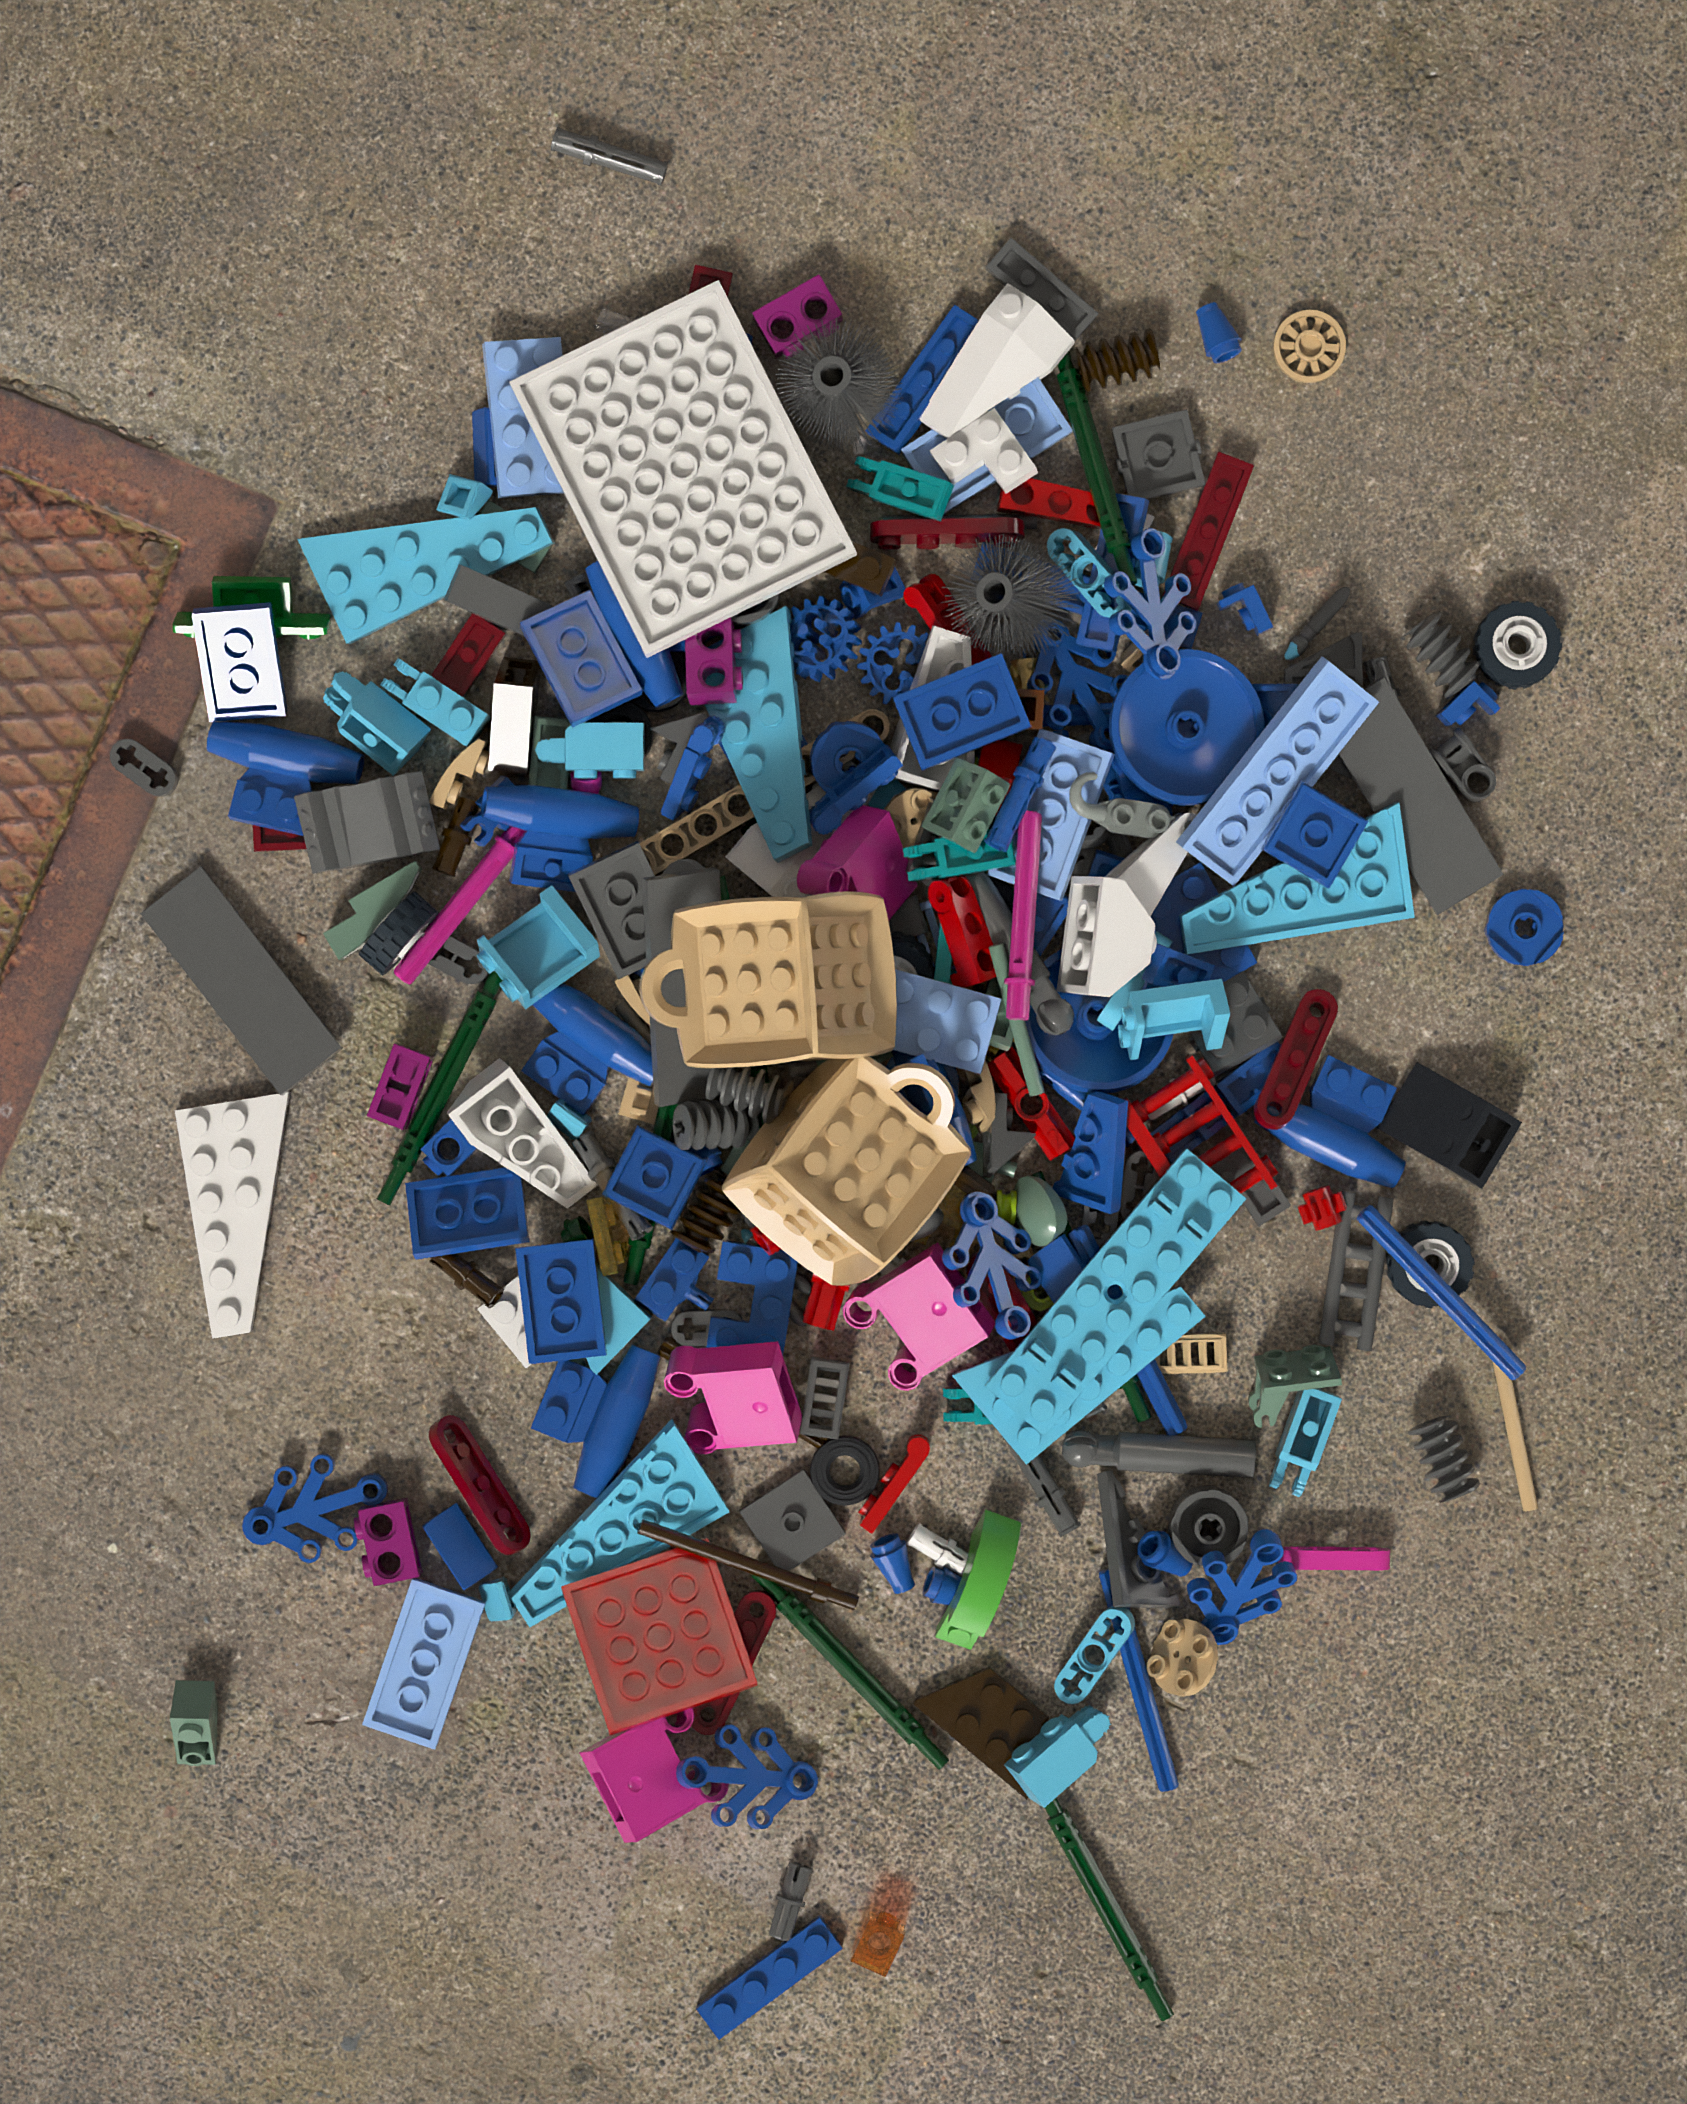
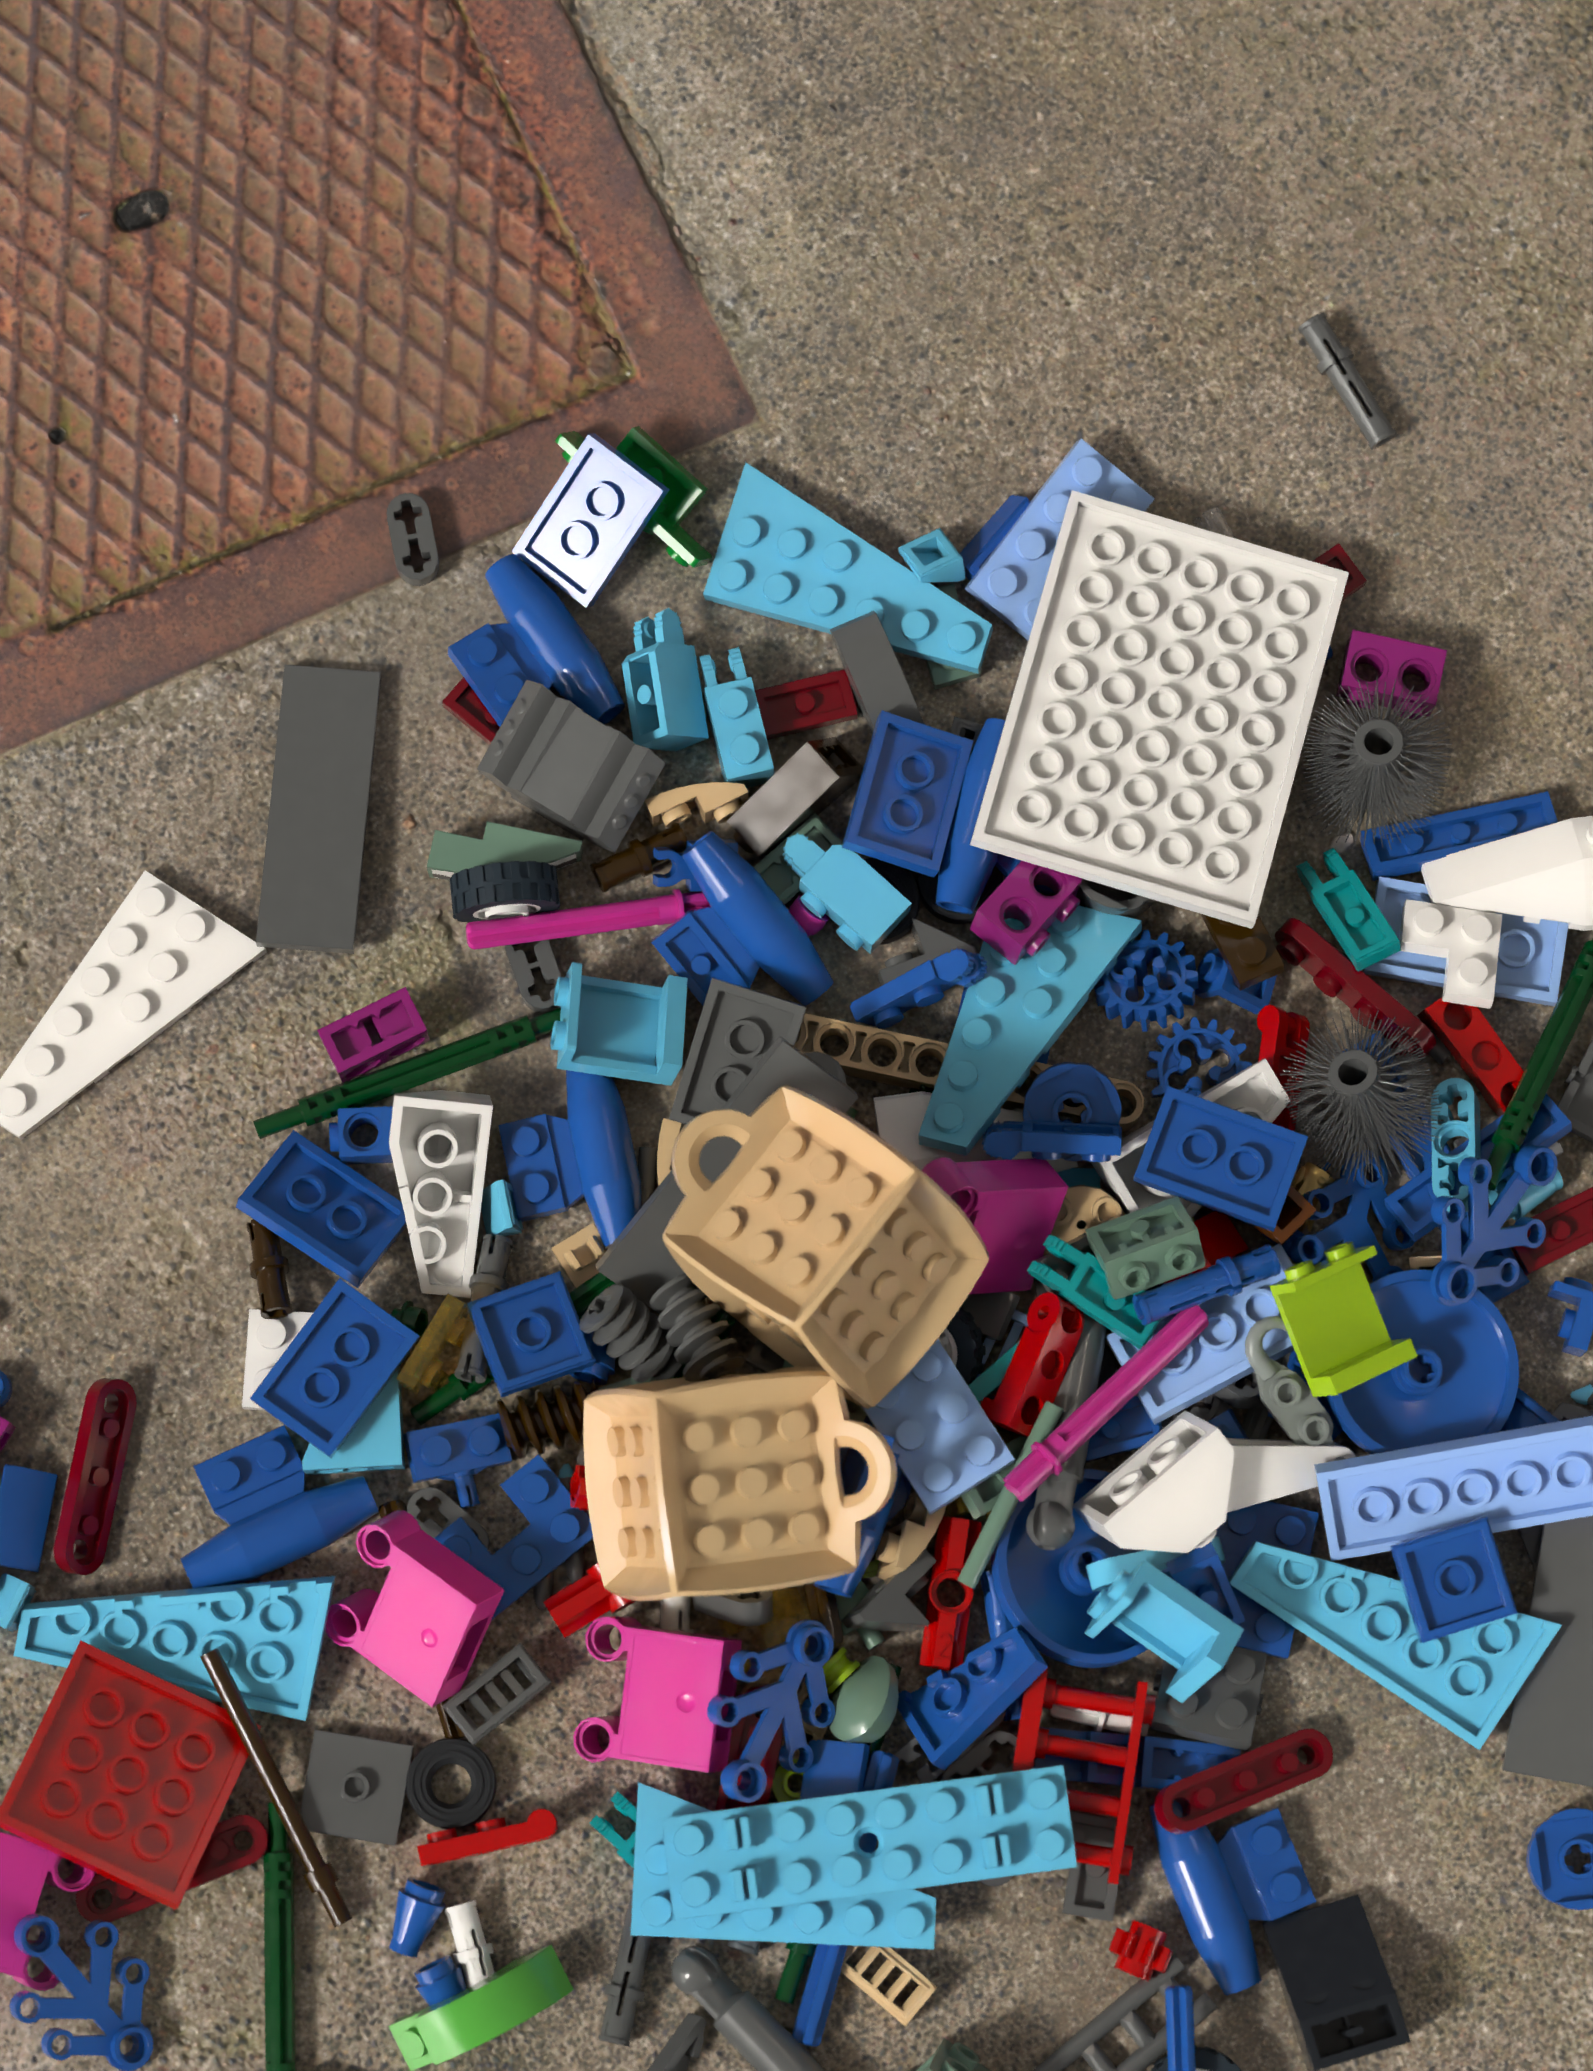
camera: 30 degrees right, 10 degrees down
(1116, 747) = (1337, 1322): none -> lime panel

